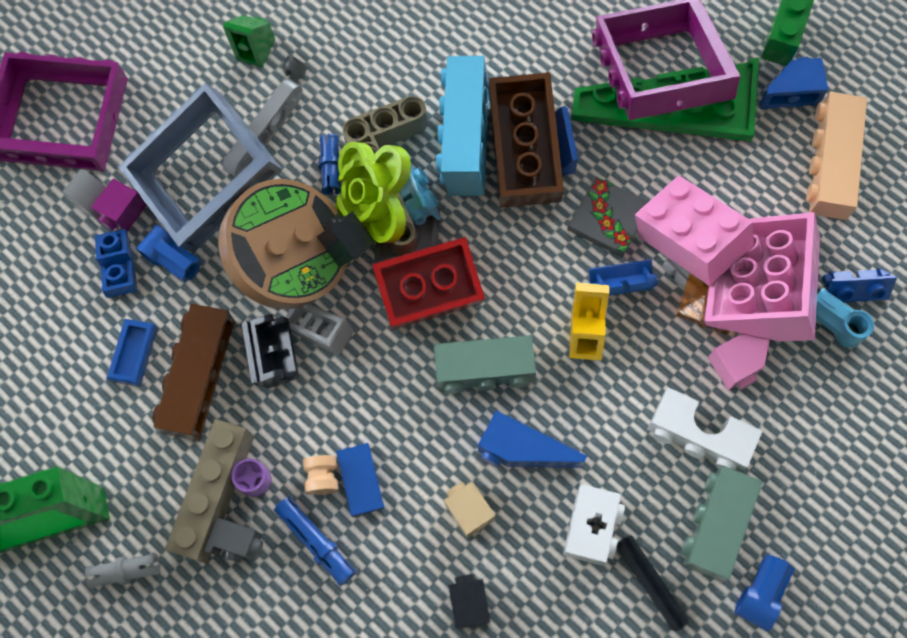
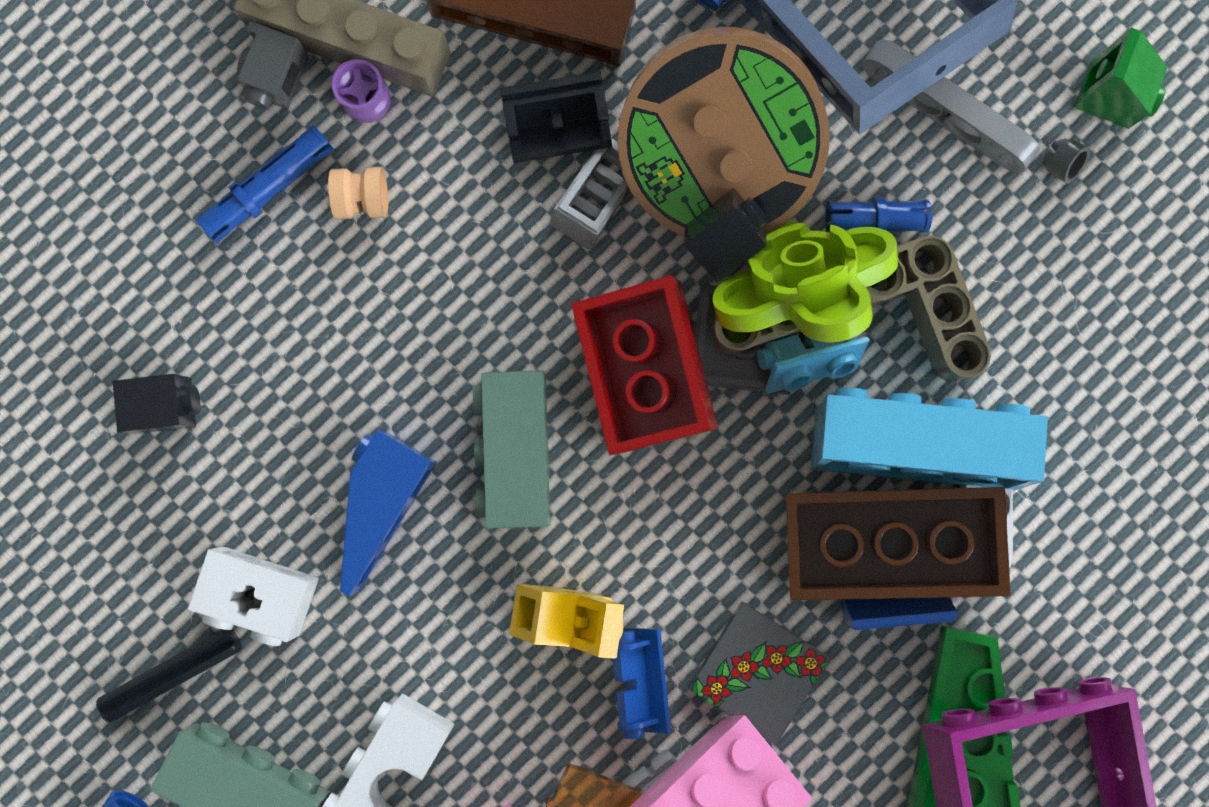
camera: 90 degrees right, 15 degrees up
(360, 480) = (352, 253): blue tile -> none
(468, 508) = (291, 411): tan brick -> none

